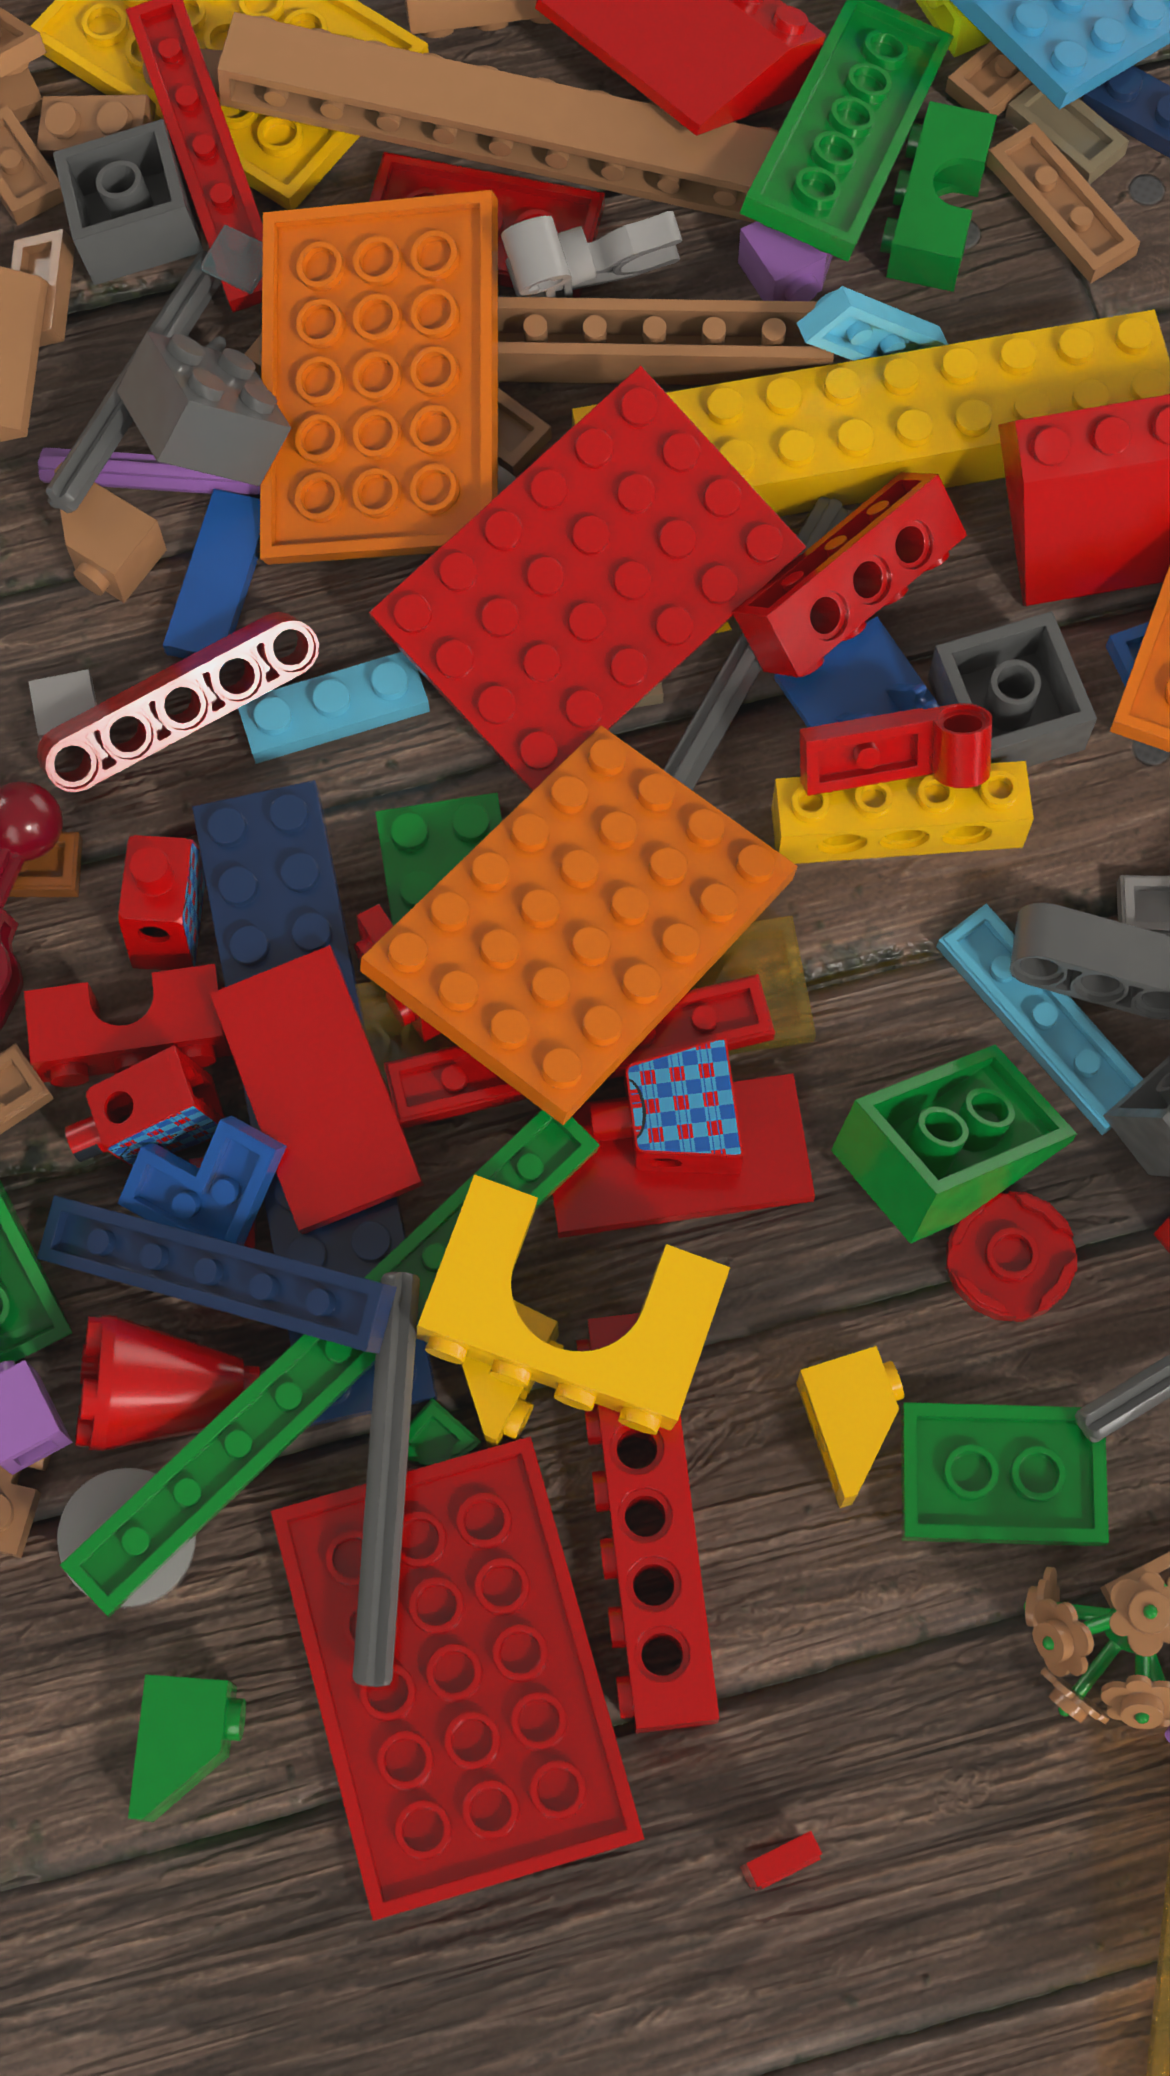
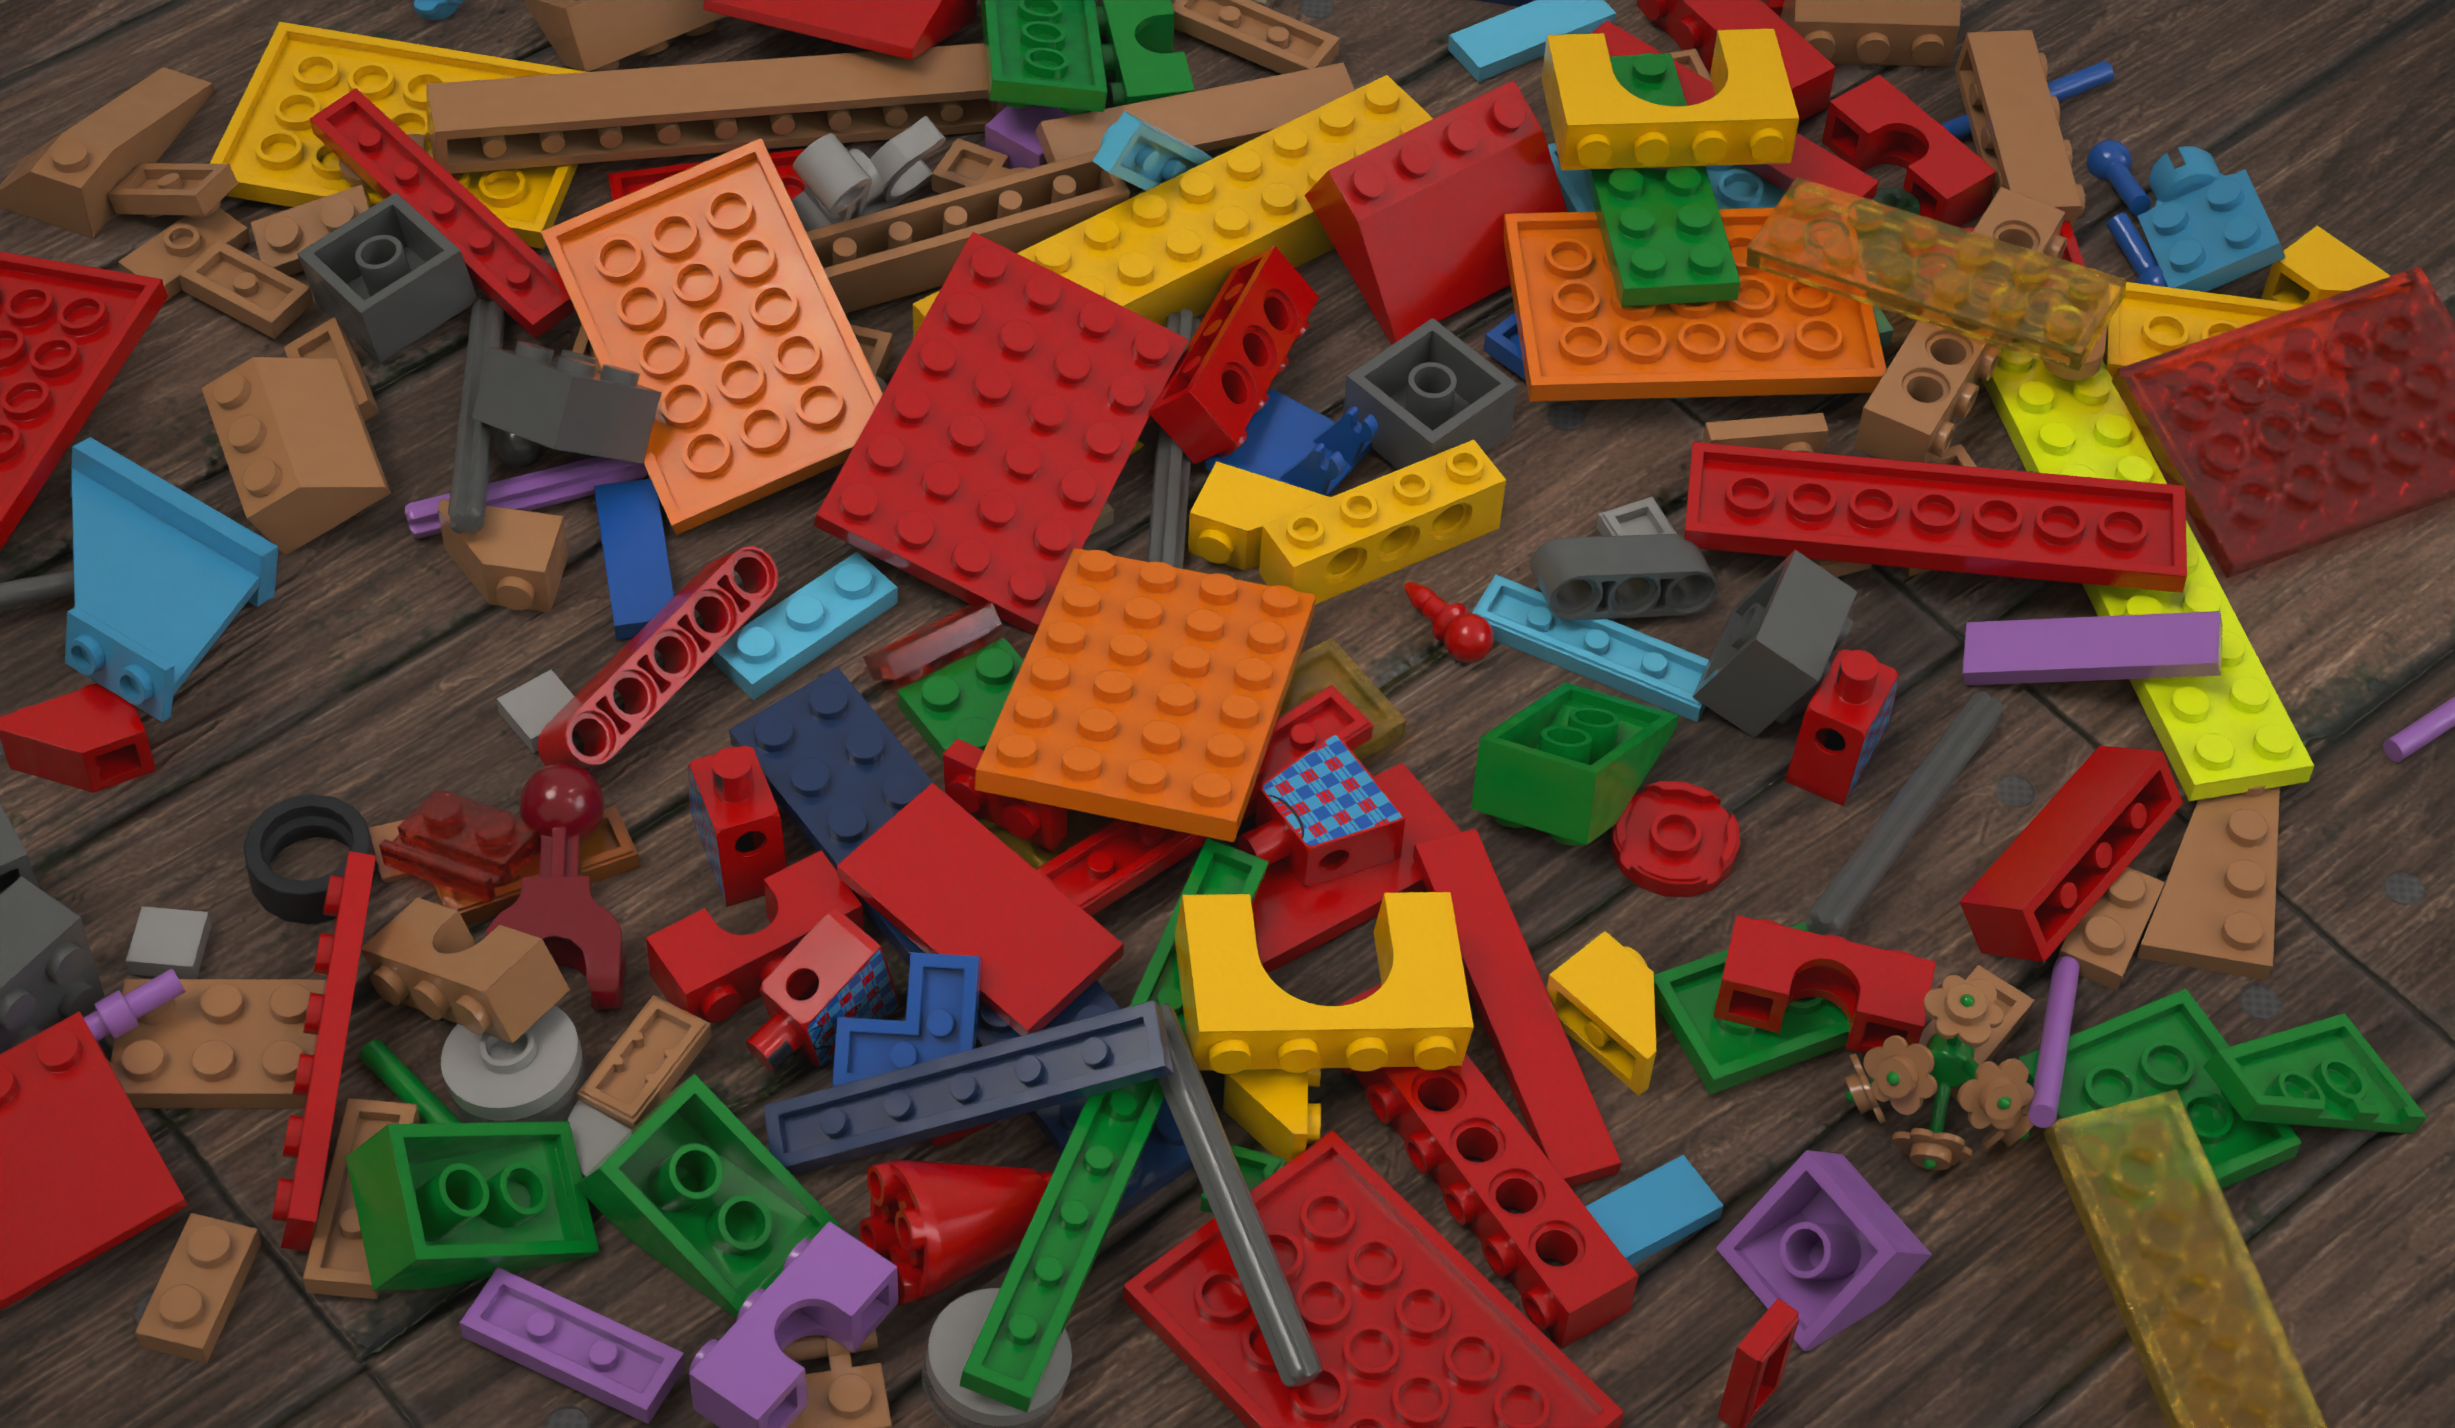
camera: 30 degrees left, 20 degrees down
(235, 259) = (525, 286): clear light blue piece -> none
(450, 771) = (956, 634): none -> clear red plate
(718, 271) = (969, 165): none -> medium nougat plate
(762, 746) = (1231, 513): none -> yellow slope
(763, 1379) = (1518, 1011): none -> red tile
(777, 1639) = (1656, 1210): none -> dark azure tile
(917, 1754) = (1823, 1247): none -> medium lavender slope
(923, 959) = (1465, 634): none -> red bar
(939, 741) = (1341, 464): red plate -> none
(960, 291) = (1208, 116): none -> medium nougat tile
(1103, 1528) = (1779, 964): none -> red arch

